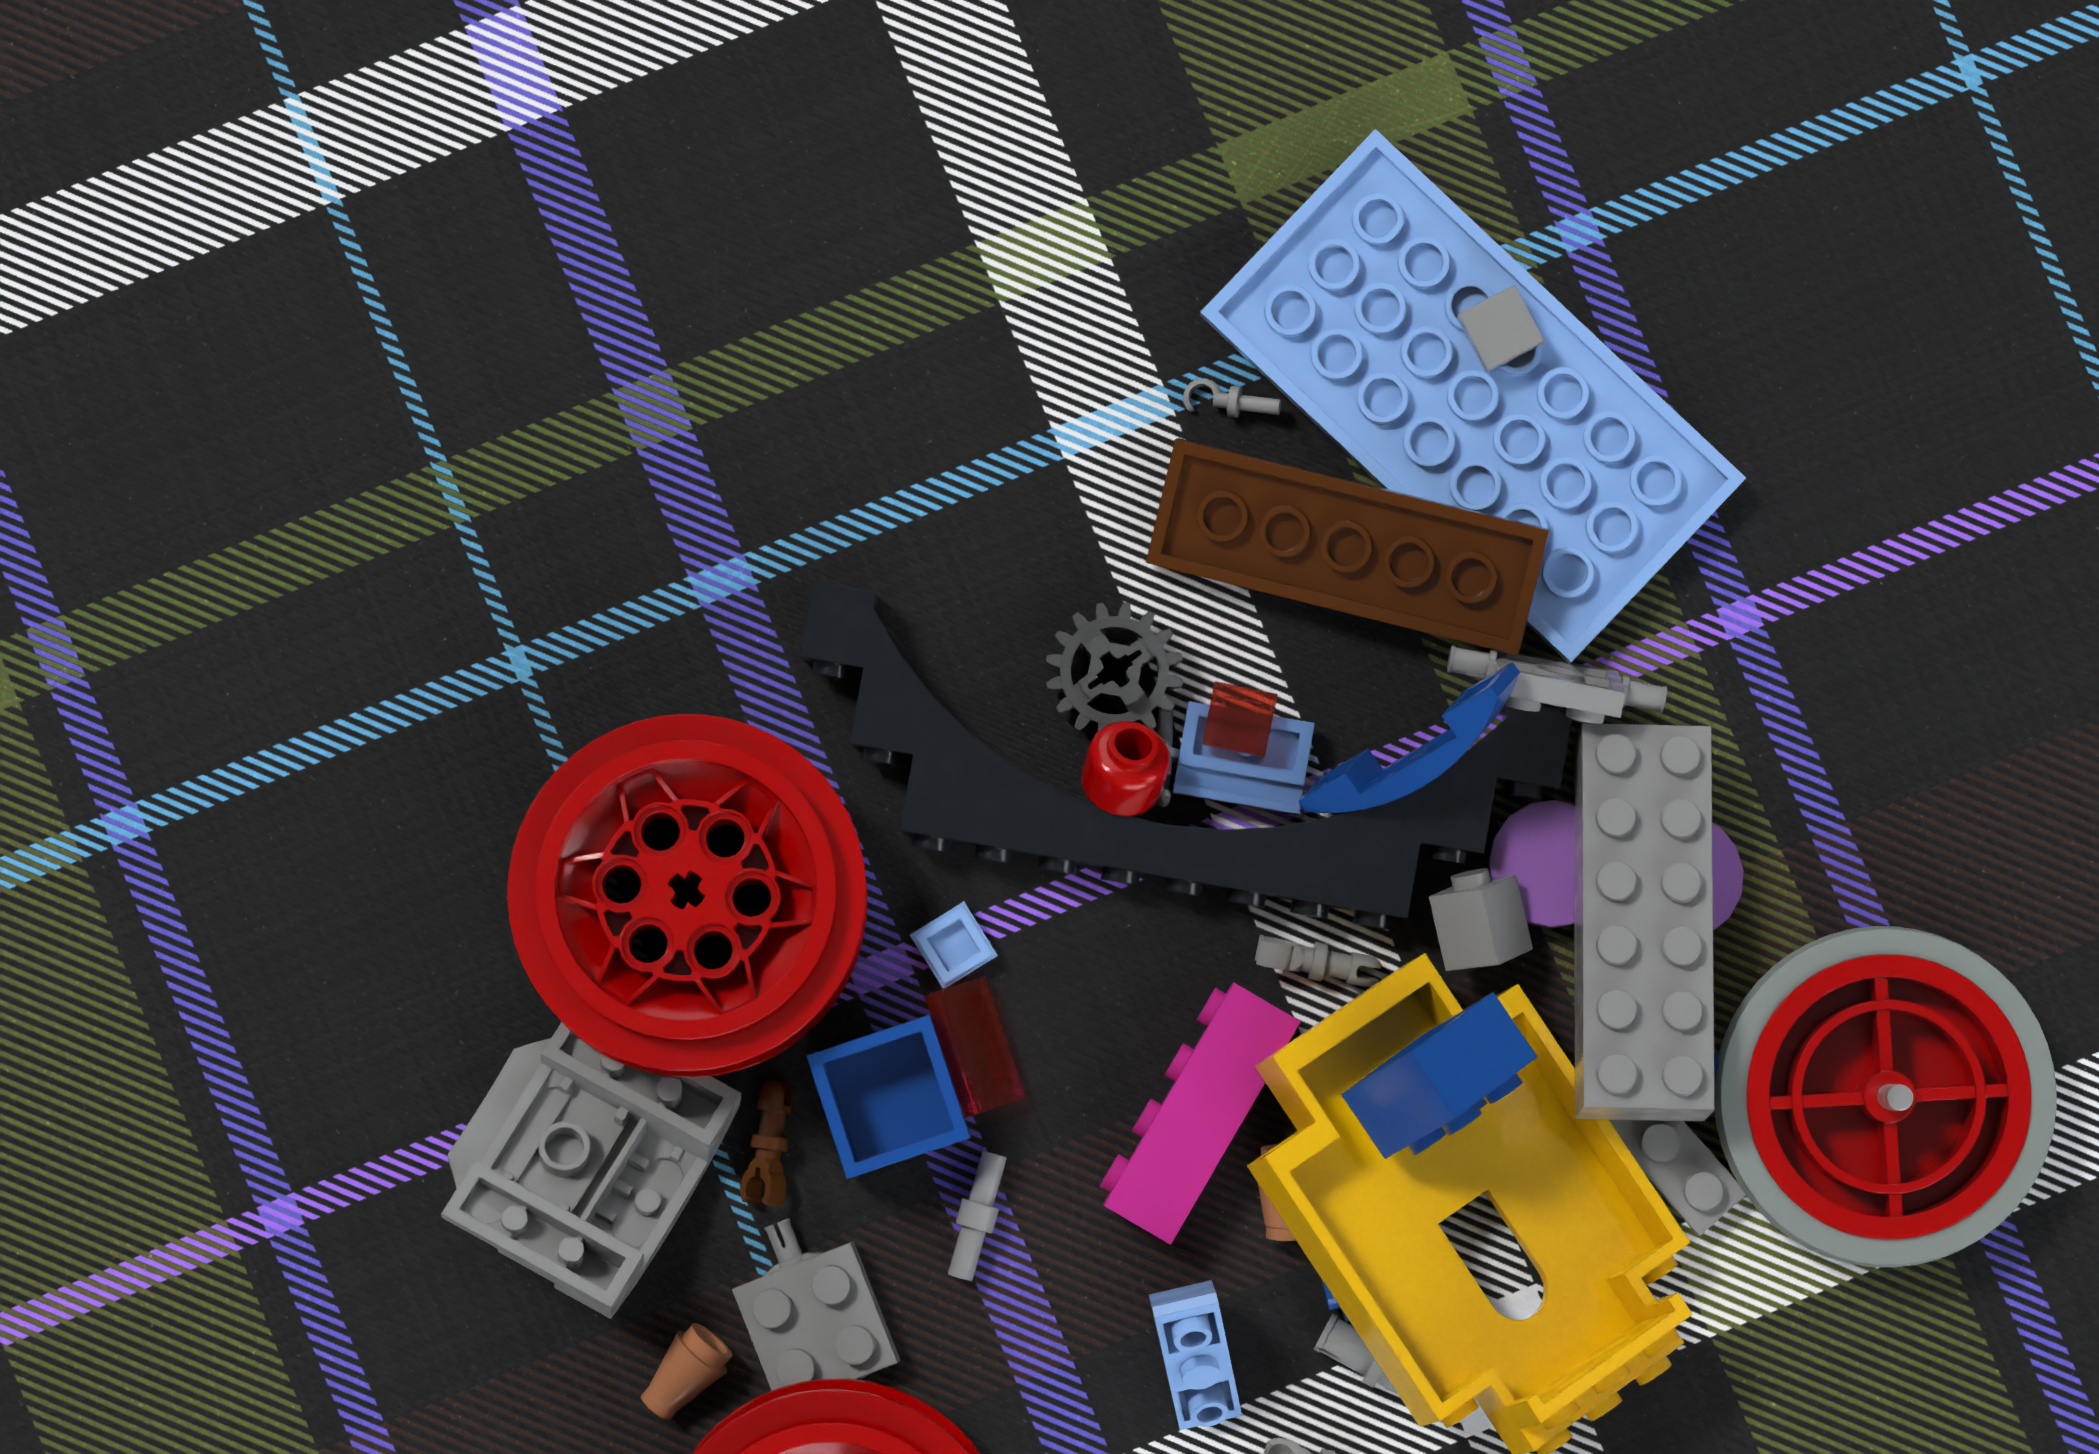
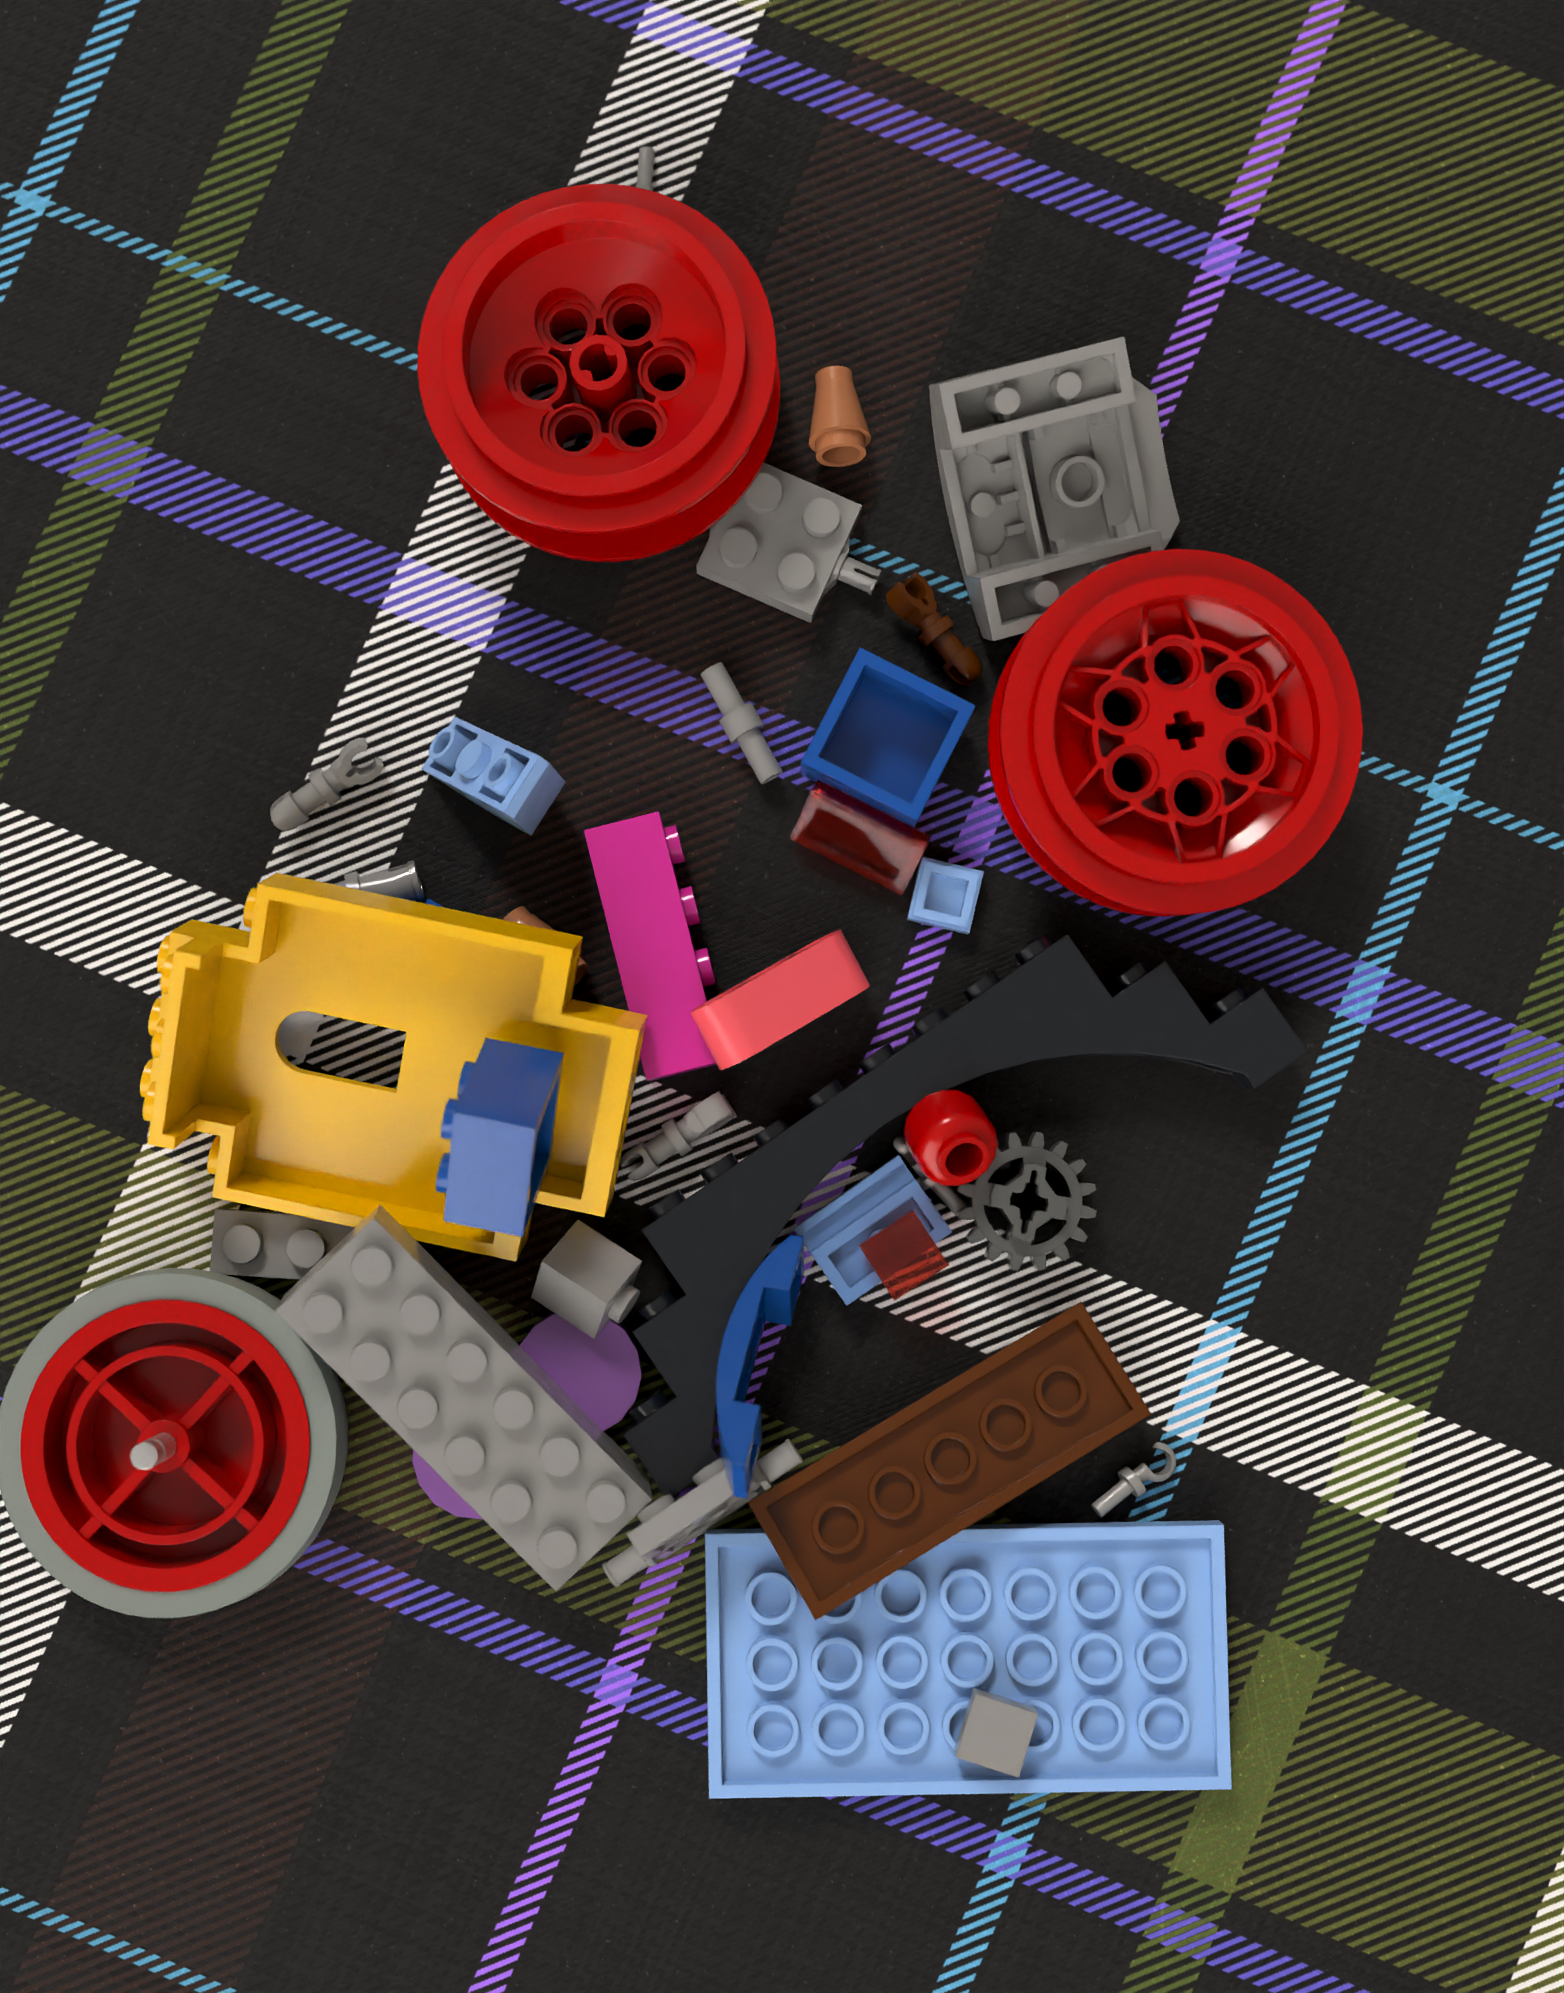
camera: 135 degrees right, 0 degrees up
(1148, 985) = (779, 999): none -> coral beam

